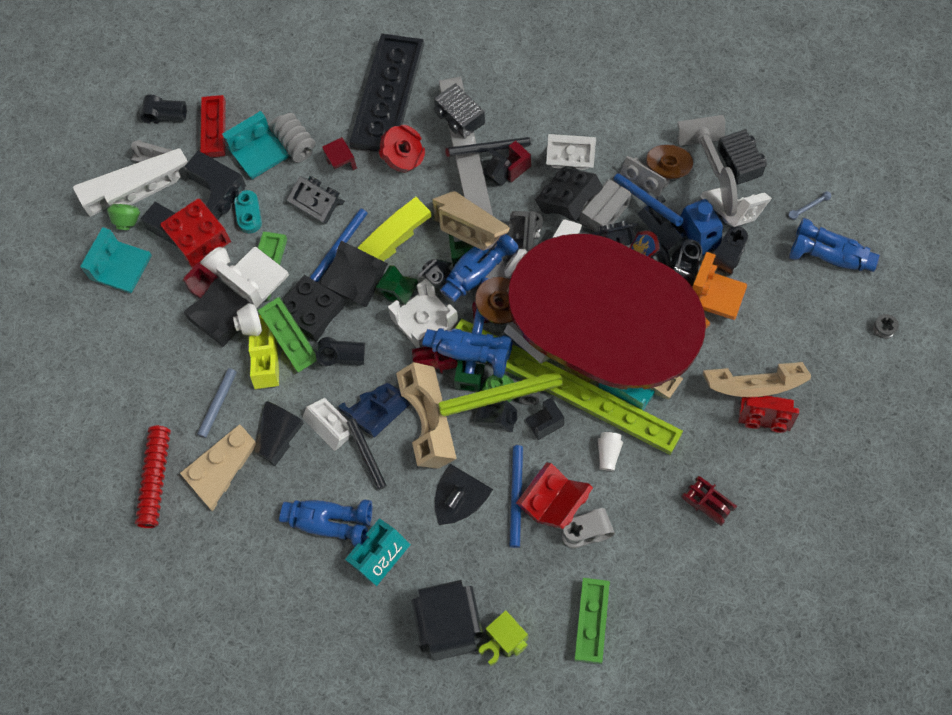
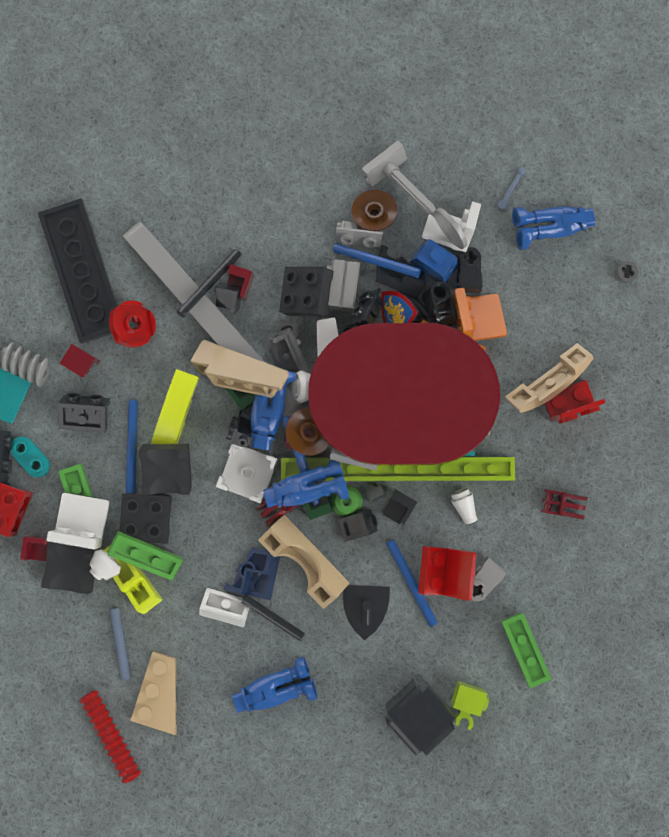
camera: 40 degrees left, 20 degrees up
(214, 258) = (36, 523): white cone -> none
(276, 432) = (186, 641): black slope -> none
(343, 352) = (189, 548): black piece -> none
(378, 552) = (334, 695): teal brick -> none
(396, 286) = (208, 457): dark green panel -> none
(459, 111) = (164, 263): black brick -> none
(500, 393) = (341, 525): lime axle -> none
(571, 151) = (287, 251): white bracket -> none
(742, 156) = (433, 171): black brick -> none

